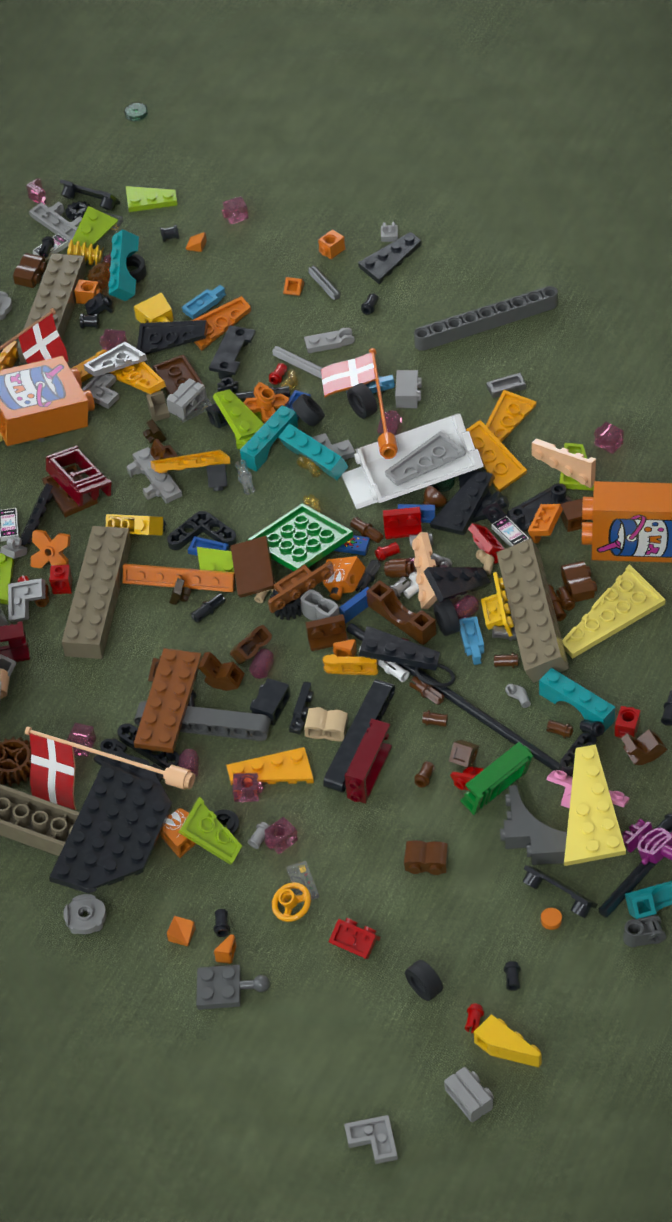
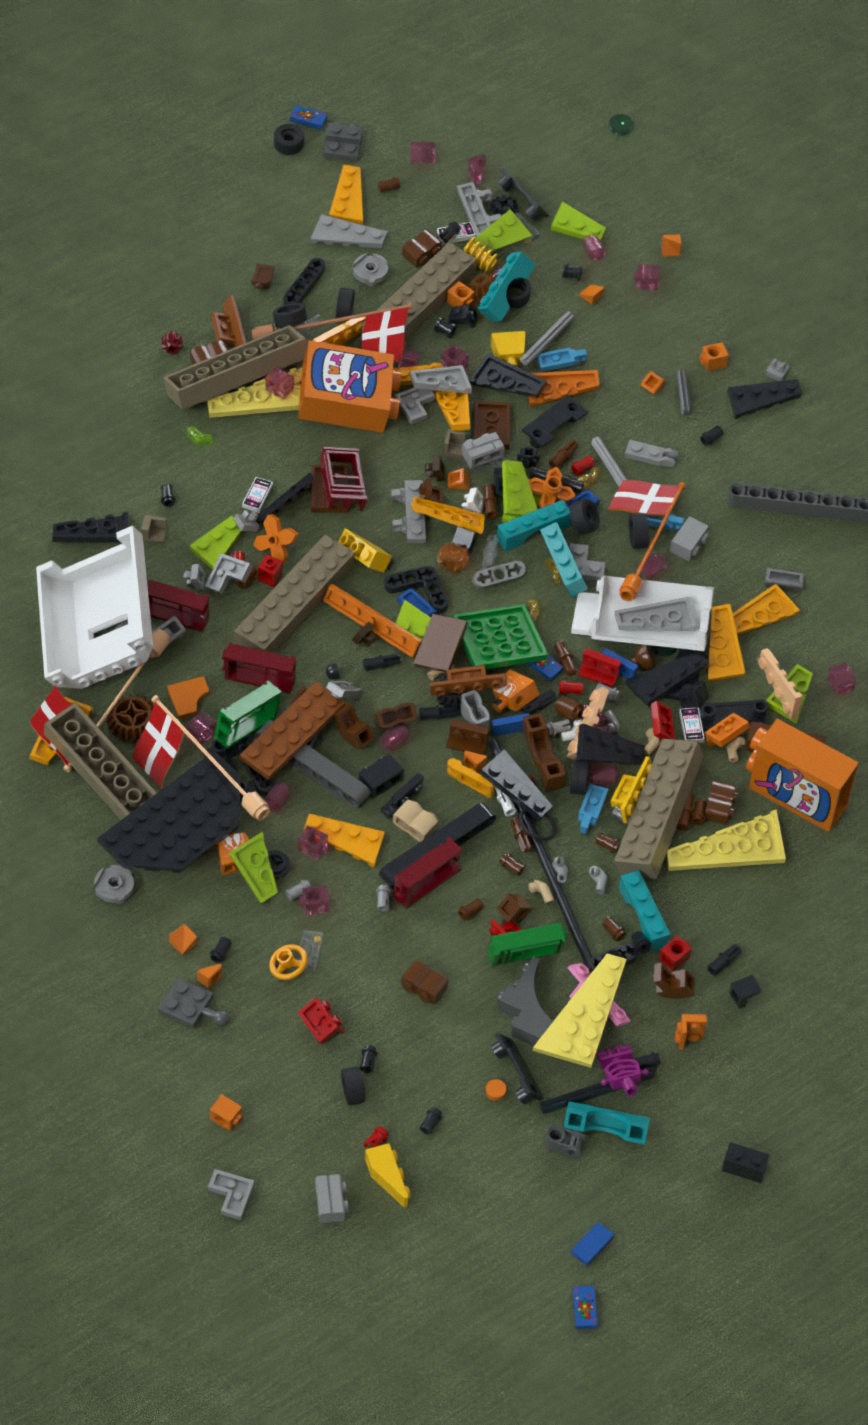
camera: 20 degrees right, 5 degrees up
(50, 718) = (186, 696): none -> orange tile
(74, 357) = (409, 357): none -> clear pink panel
(120, 705) = (247, 715): none -> green door
(126, 667) = (282, 679): none -> dark red door
(170, 636) = (332, 671): none -> black hinge
(175, 208) = (593, 247): none -> clear pink brick
(178, 433) = (459, 479): none -> orange slope
(182, 291) = (539, 346): none -> light grey axle
(193, 644) = (344, 689): none -> light grey hinge
(203, 442) = (474, 501): none -> white tile
(216, 494) = (453, 557): none -> clear orange gear
(217, 436) = (490, 501): none -> reddish brown pin
(238, 179) = (671, 245): none -> orange slope
(255, 373) = (563, 454): none -> reddish brown axle
(264, 483) = (484, 573): none -> light grey beam
(285, 625) = (436, 712): none -> black axle
(321, 1067) = (226, 1113): none -> orange brick
(340, 803) = (383, 898): none -> light grey pin
(419, 950) = (369, 1053): none -> black pin
(475, 726) = (543, 888): none -> tan arm
(480, 702) = (560, 868): none -> light grey arm
(557, 534) = (732, 748): none -> tan arm

